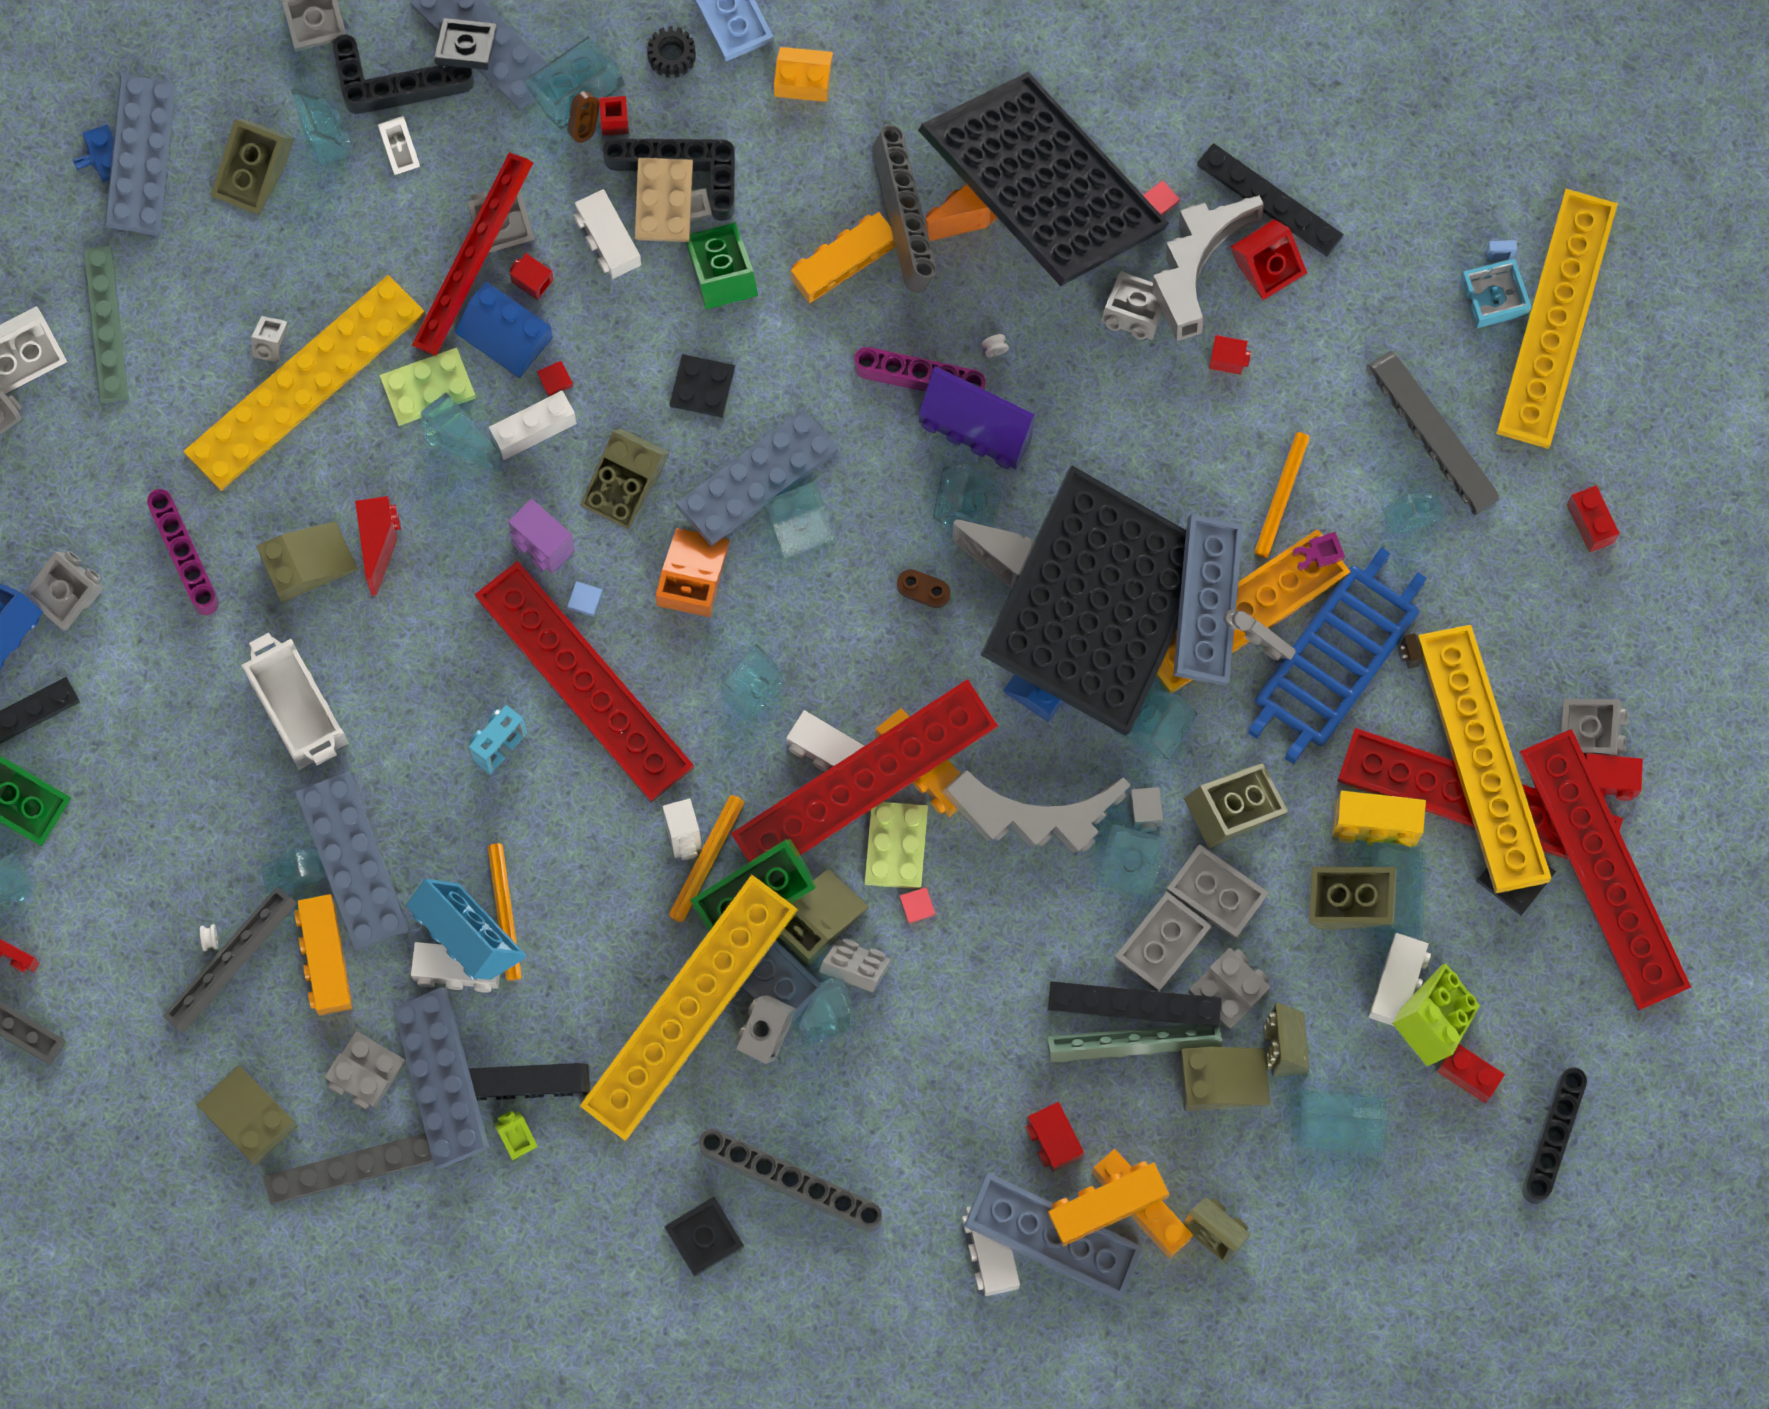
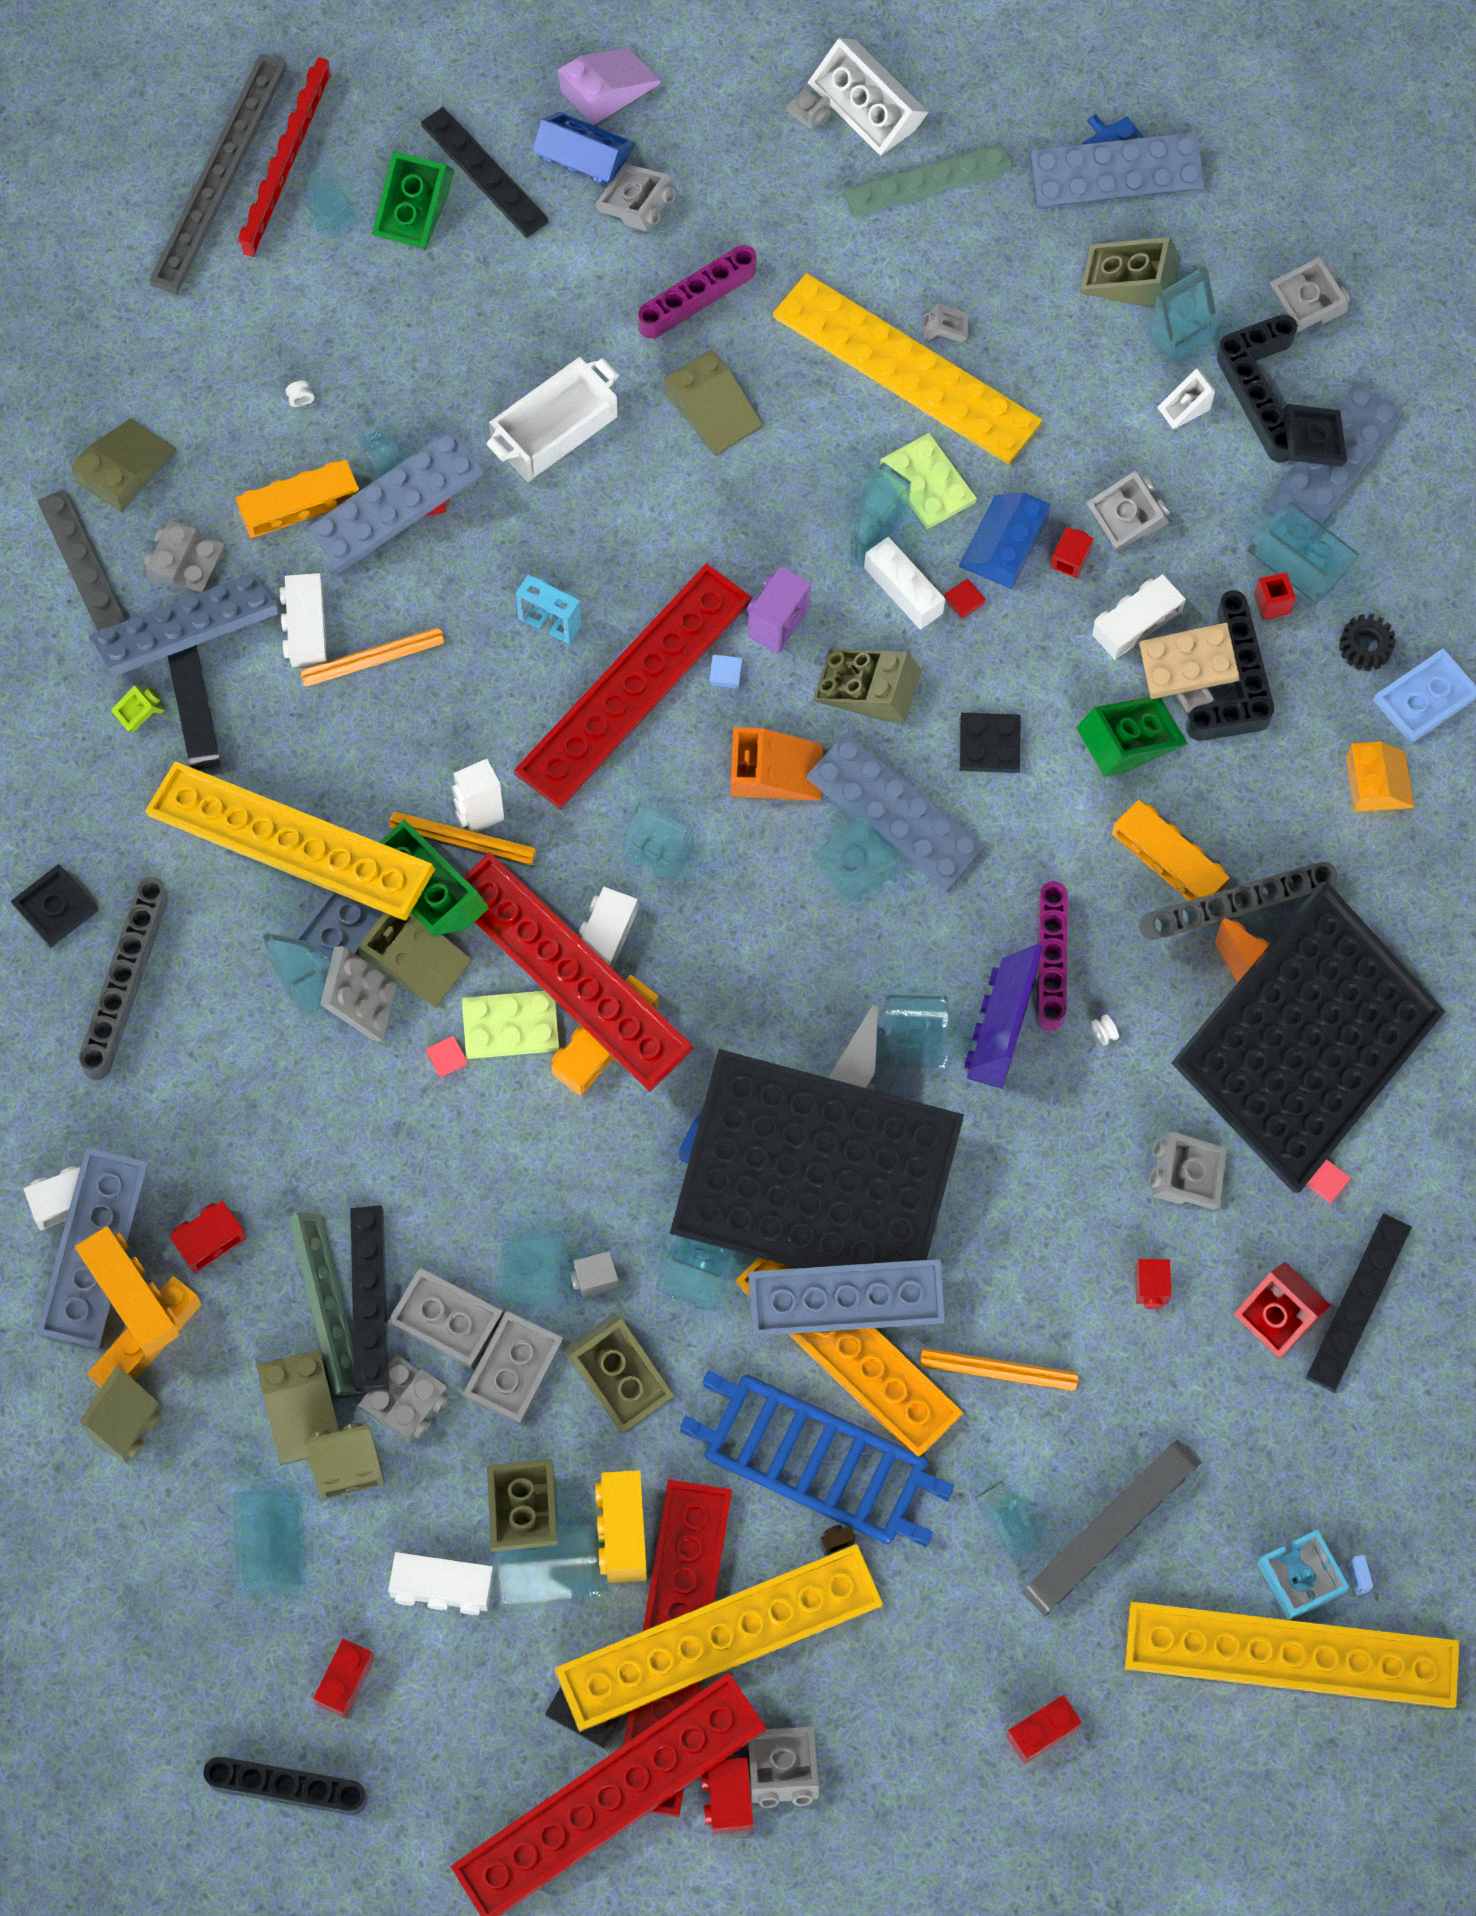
camera: 80 degrees right, 5 degrees down
(229, 959) = (278, 414): dark grey plate -> none
(378, 537) = (740, 457): red slope -> none
(464, 929) = (338, 614): dark azure slope -> none
(472, 254) = (1081, 486): red plate -> none
(583, 116) = (1264, 563): reddish brown plate -> none
(777, 1016) = (279, 917): light grey brick -> none
(922, 590) = (806, 1002): reddish brown plate -> none
(993, 813) = (562, 1196): light grey arch -> none
(1202, 234) = (1259, 1215): arch -> none
(1259, 634) = (817, 1359): light grey hinge -> none
(1322, 550) = (933, 1418): magenta plate -> none
(1437, 1016) = (402, 1627): lime slope -> none

